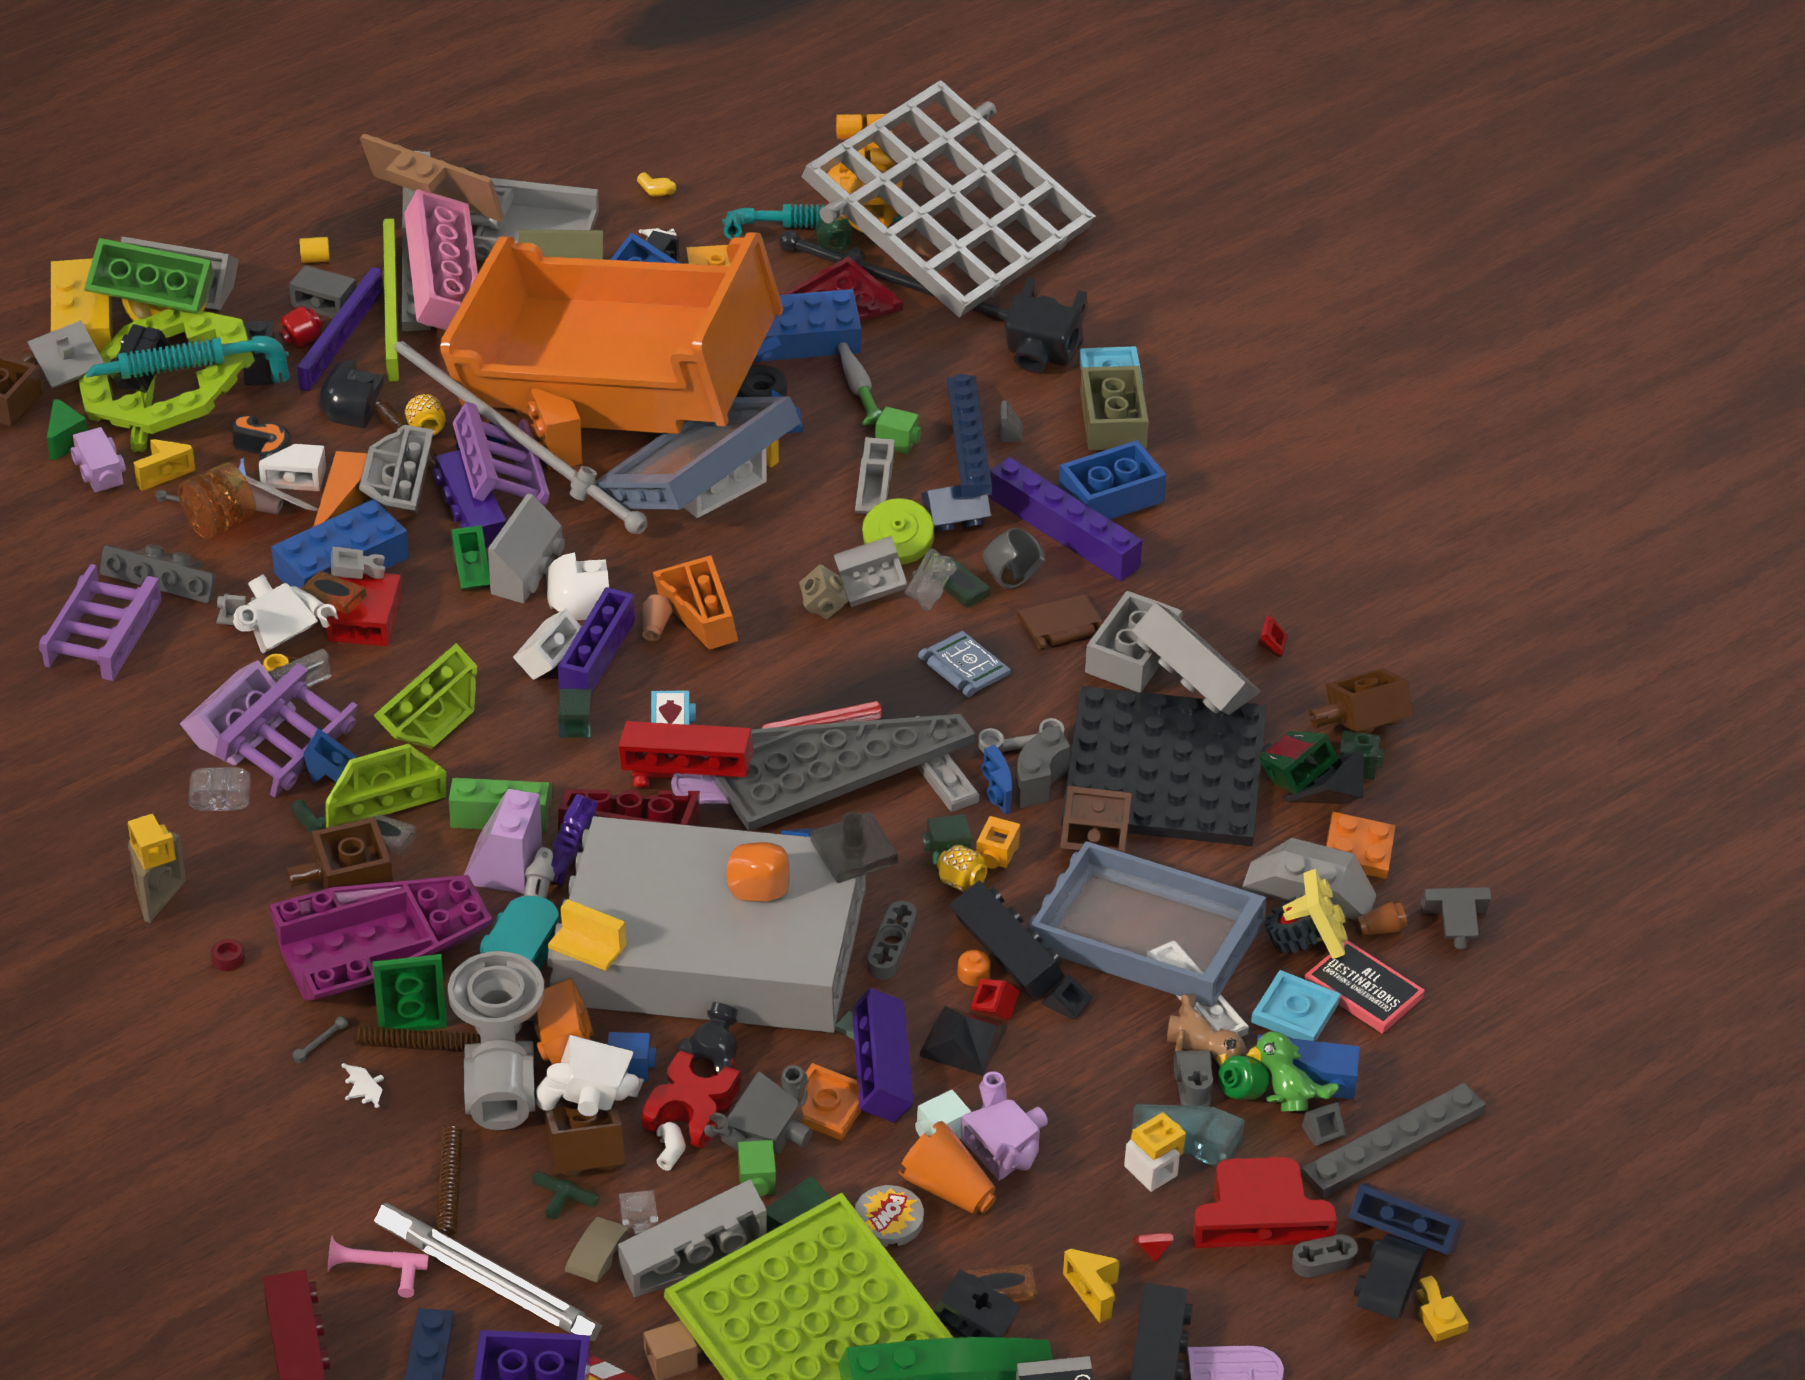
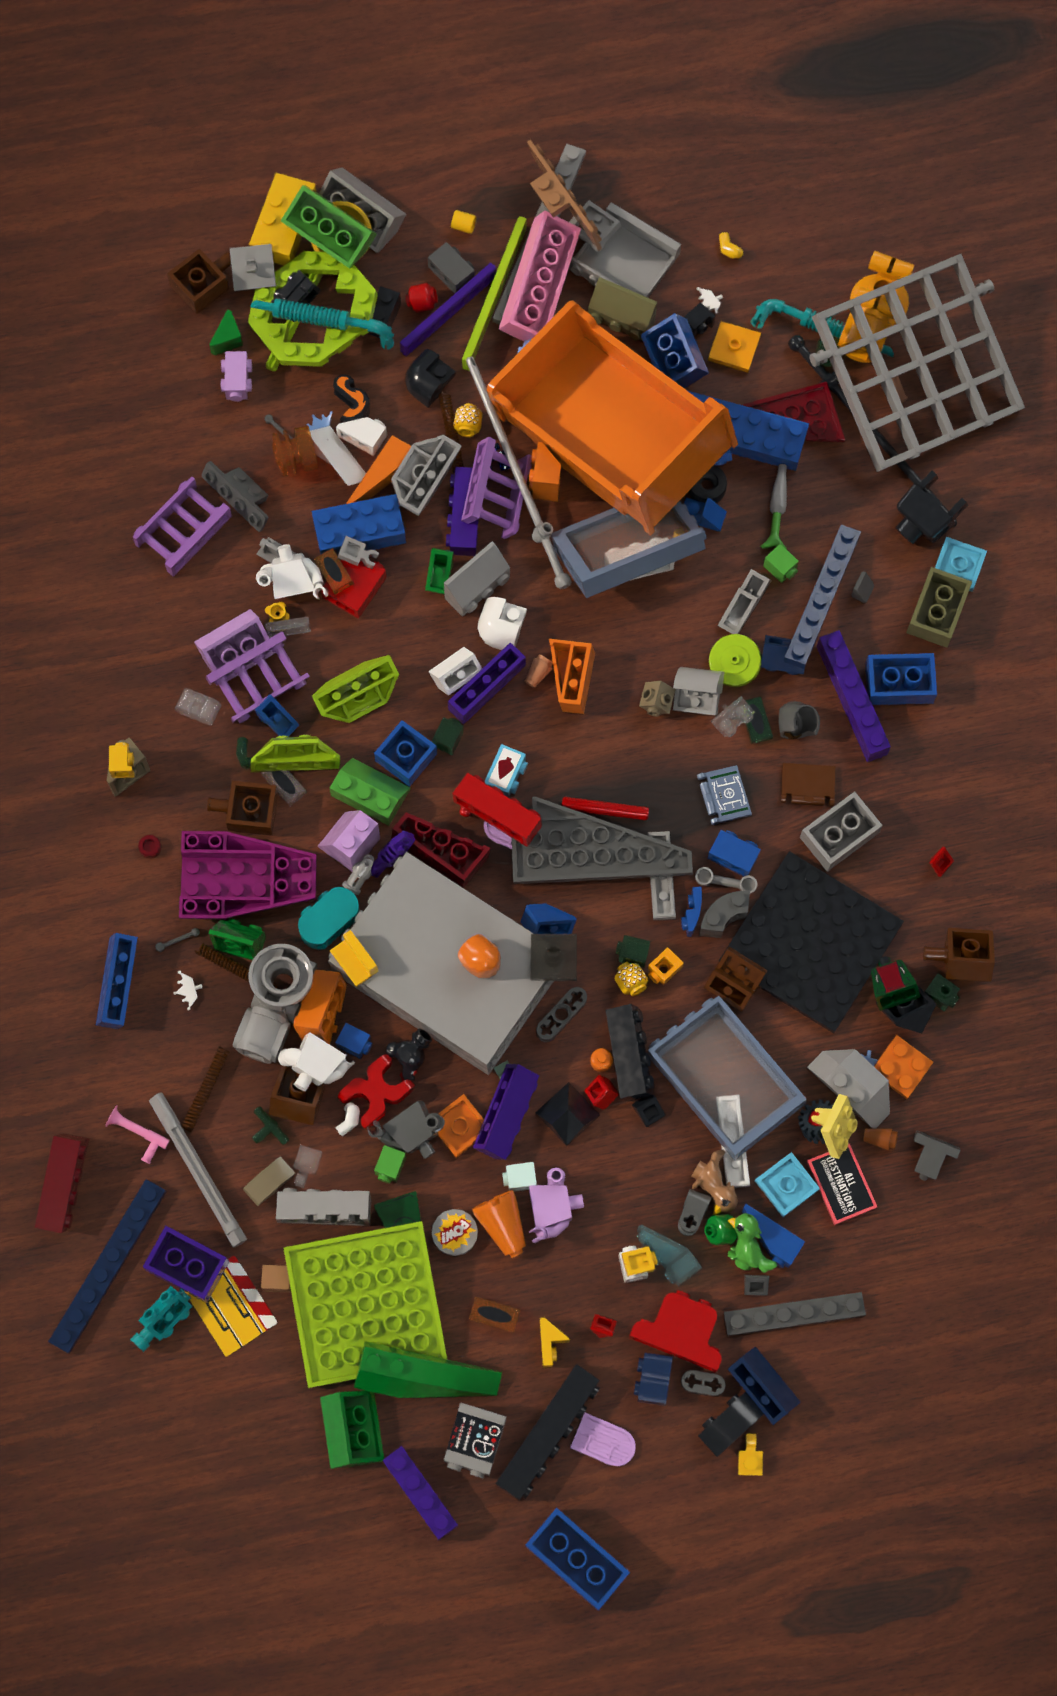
camera: 25 degrees right, 30 degrees up
(166, 463) = (283, 395): yellow slope -> none
(259, 1100) = (116, 981): none -> blue brick
(530, 742) = (405, 753): none -> blue brick
(975, 1308) = (473, 1348): black brick -> none
(1014, 708) = (734, 853): none -> blue brick
(1194, 660) = (867, 876): light grey slope -> none
(1258, 1270) = (654, 1379): none -> dark blue brick

